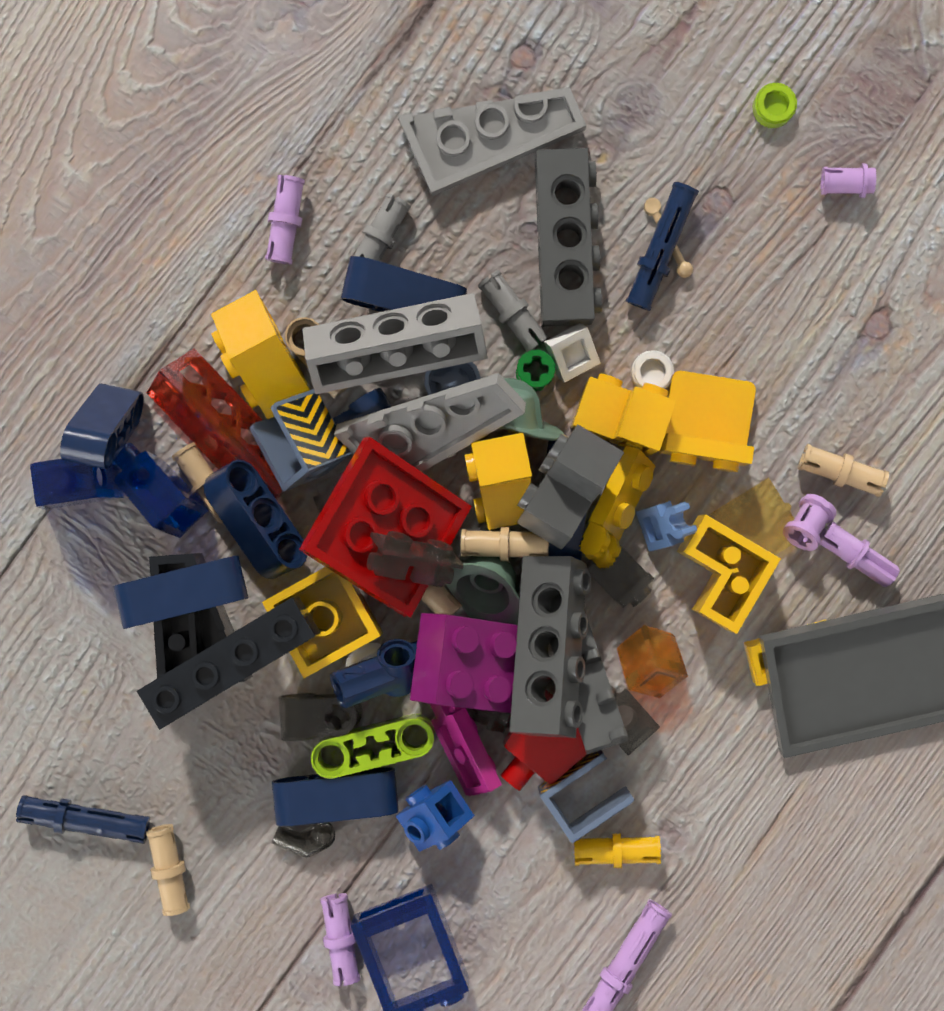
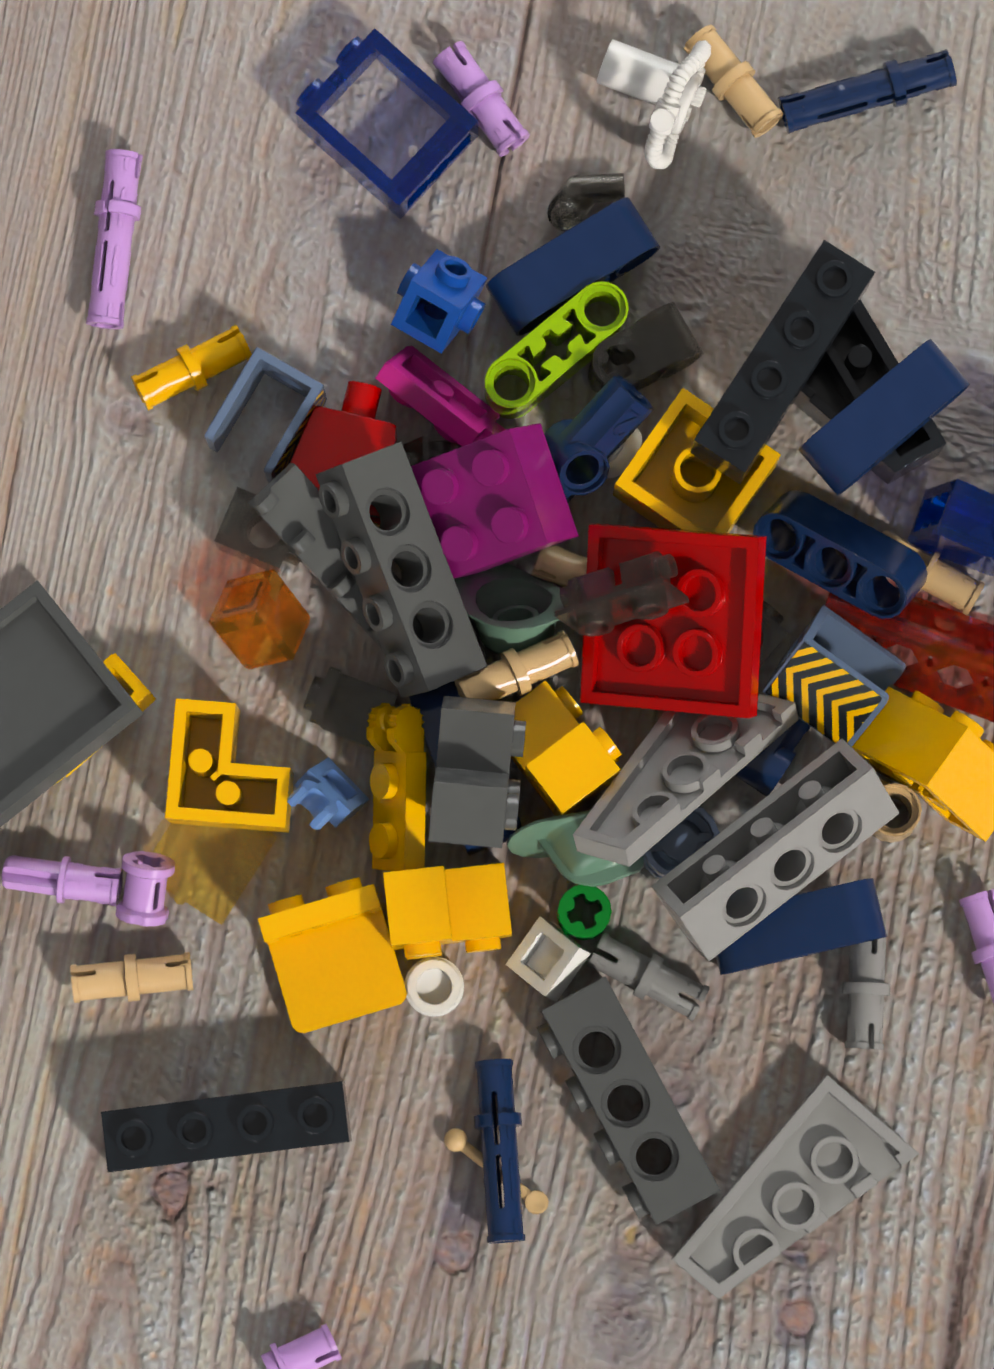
camera: 150 degrees right, 5 degrees down
(214, 889) = (661, 83): none -> white piece
(829, 344) = (226, 1126): none -> black brick

